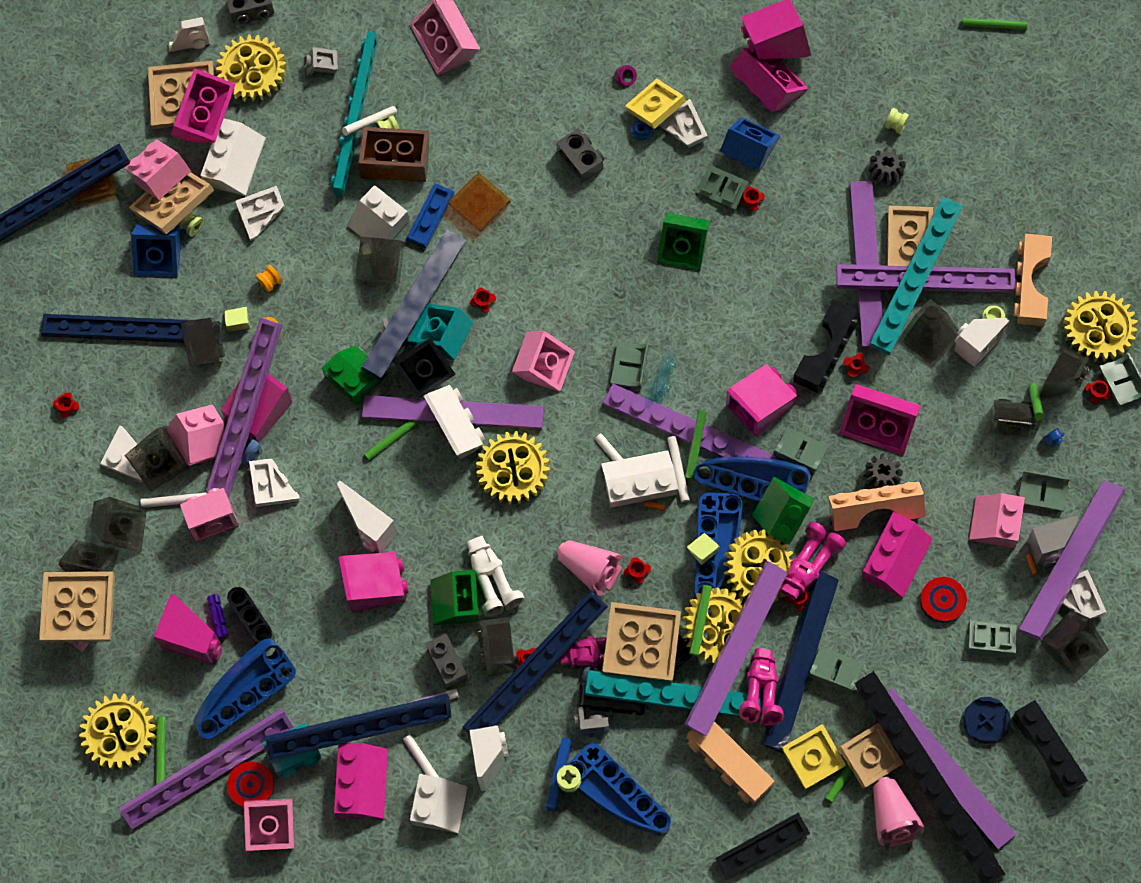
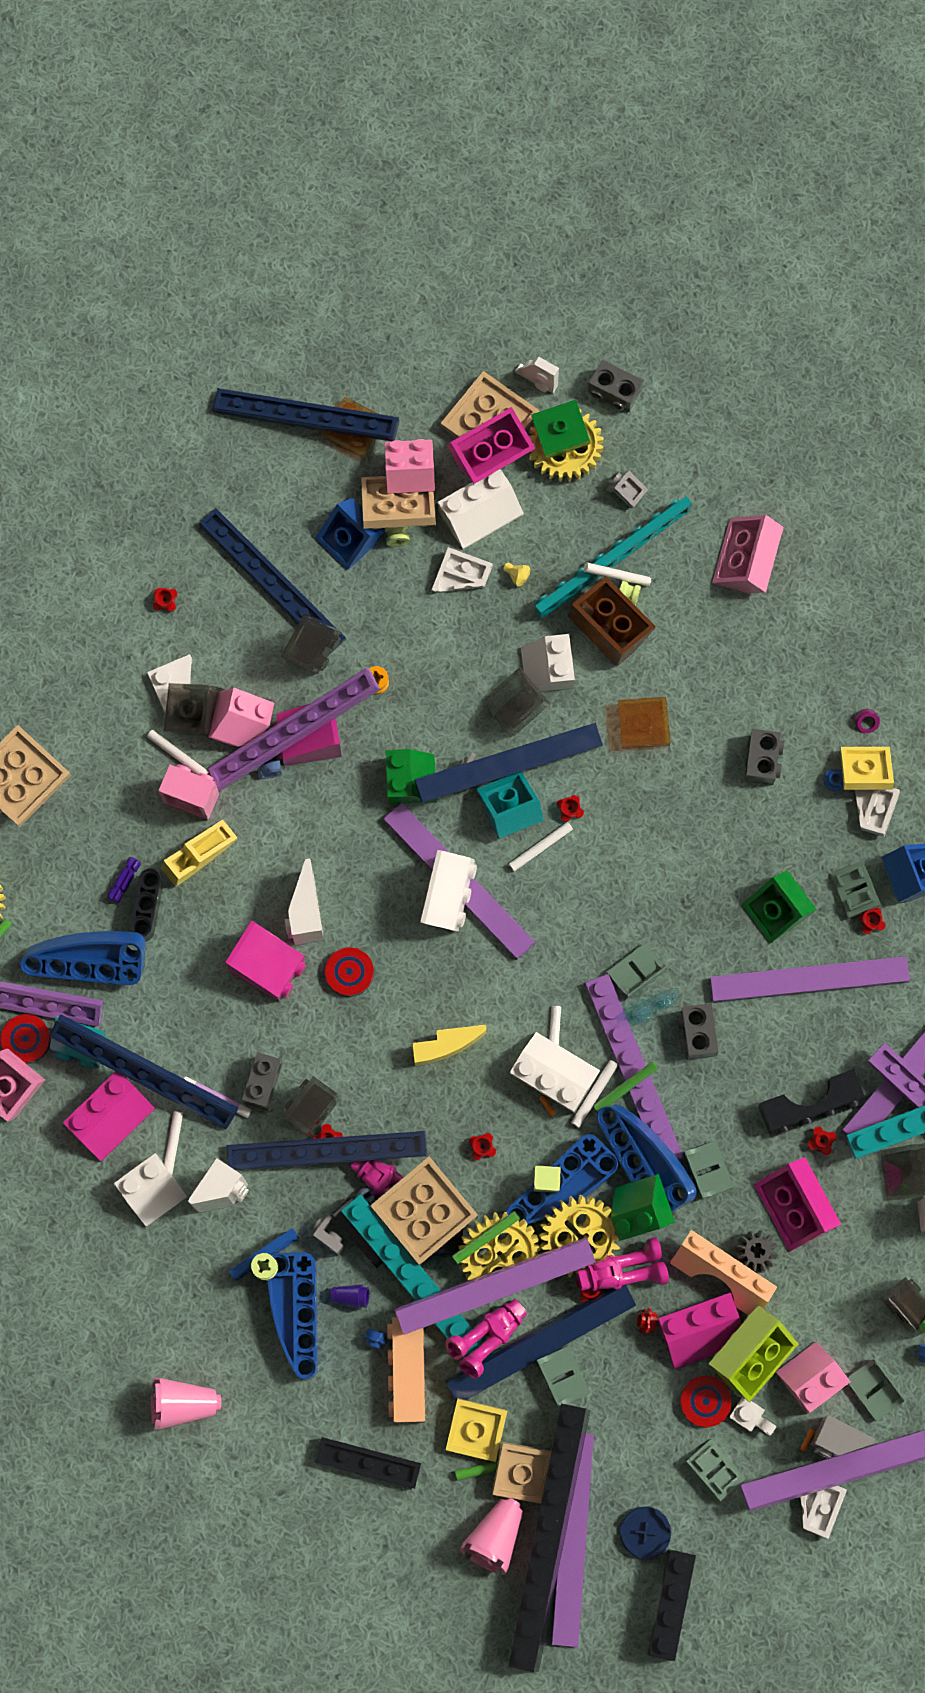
camera: 40 degrees right, 5 degrees up
(88, 558) = (66, 743): clear smoke slope -> none
(119, 523) = (116, 736): clear smoke slope -> none
(186, 633) = (85, 872): dark pink slope -> none
(237, 319) = (360, 647): yellowish green slope -> none
(240, 58) = (561, 429): none -> green plate
(253, 552) = (198, 853): none -> light yellow slope
(269, 278) = (416, 636): light orange wheel -> none
(269, 484) = (260, 809): white wing -> none
(299, 178) = (518, 574): none -> light yellow rock
(389, 440) = (389, 858): bright green bar -> none
(423, 367) = (466, 822): black slope -> none
(430, 216) = (594, 698): blue tile -> none
(435, 537) = (349, 972): none -> red tile
(455, 598) = (317, 1036): green slope -> none
(487, 340) = (540, 846): none -> white bar
(487, 564) = (365, 1029): white piece -> none
(492, 471) = (481, 981): light yellow gear -> none
(543, 360) = (569, 904): bright pink slope -> none
(548, 525) = (448, 1043): none -> light yellow slope
(591, 565) = (447, 1109): bright pink cone -> none
(644, 747) = (351, 1295): none -> dark purple cone
(687, 760) = (375, 1338): none -> blue plate
(713, 363) = (704, 1031): none -> dark grey brick
(747, 271) = (809, 979): none -> medium lavender tile
(760, 399) = (715, 1097): dark pink slope -> none
(856, 582) = (647, 1321): none -> red plate
(945, 537) = (753, 1353): none -> lime brick
(980, 582) = (749, 1416): none -> white plate
(1074, 644) = (776, 1540): clear smoke slope -> none

